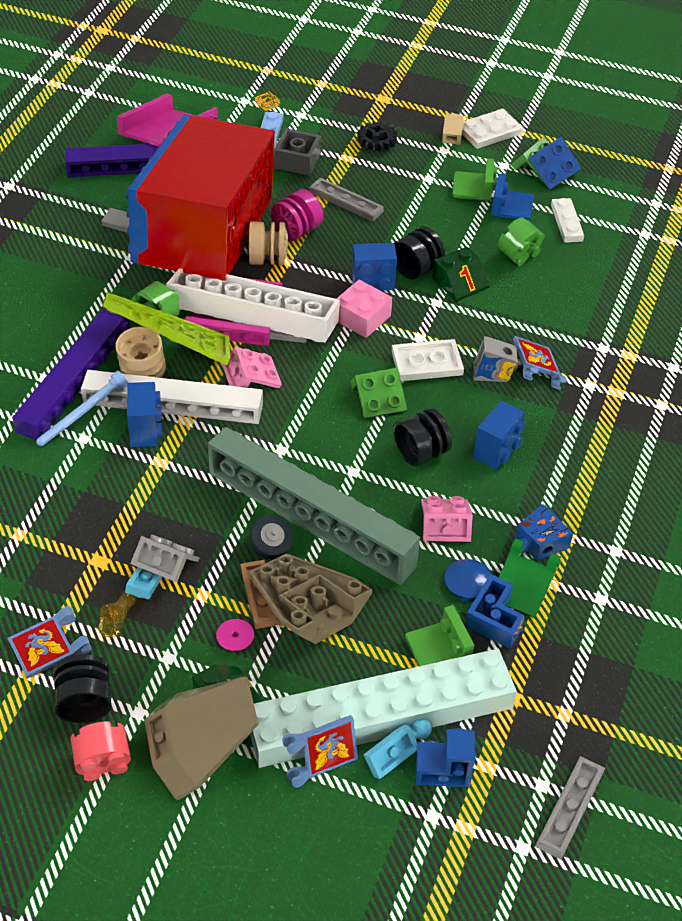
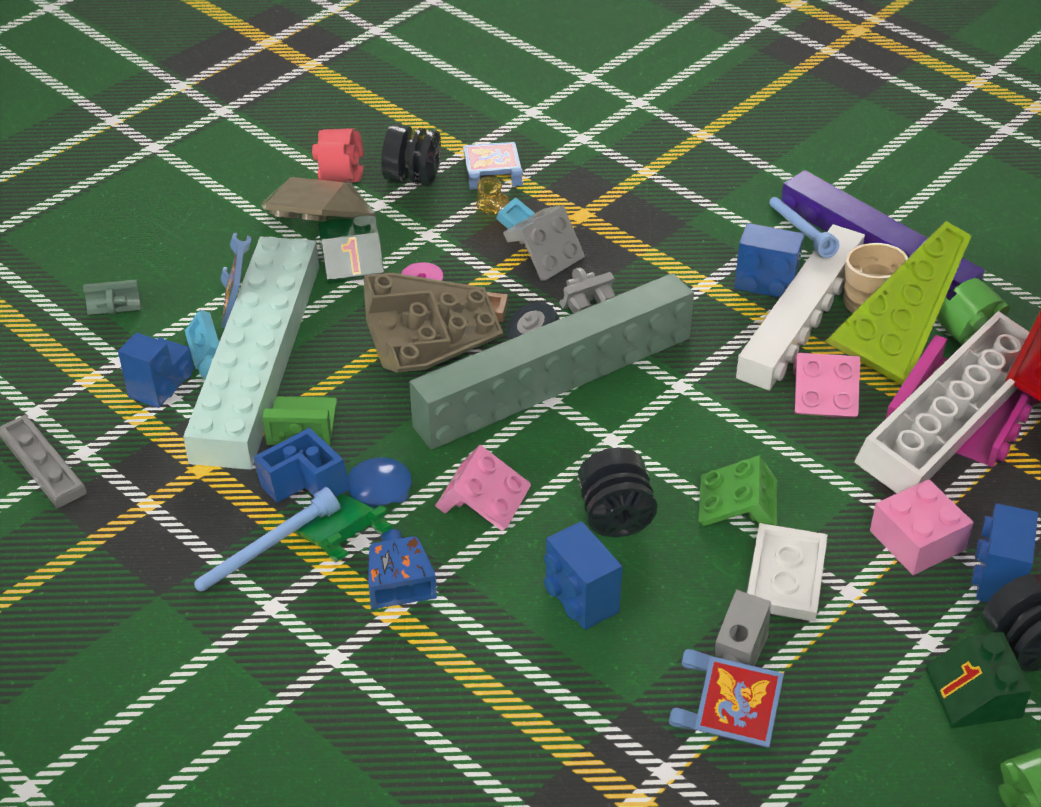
camera: 115 degrees right, 5 degrees down
(212, 519) = (586, 288): none -> light grey hips
(376, 864) = (112, 297): none -> sand green hips
(520, 590) = (323, 504): none -> light blue piece

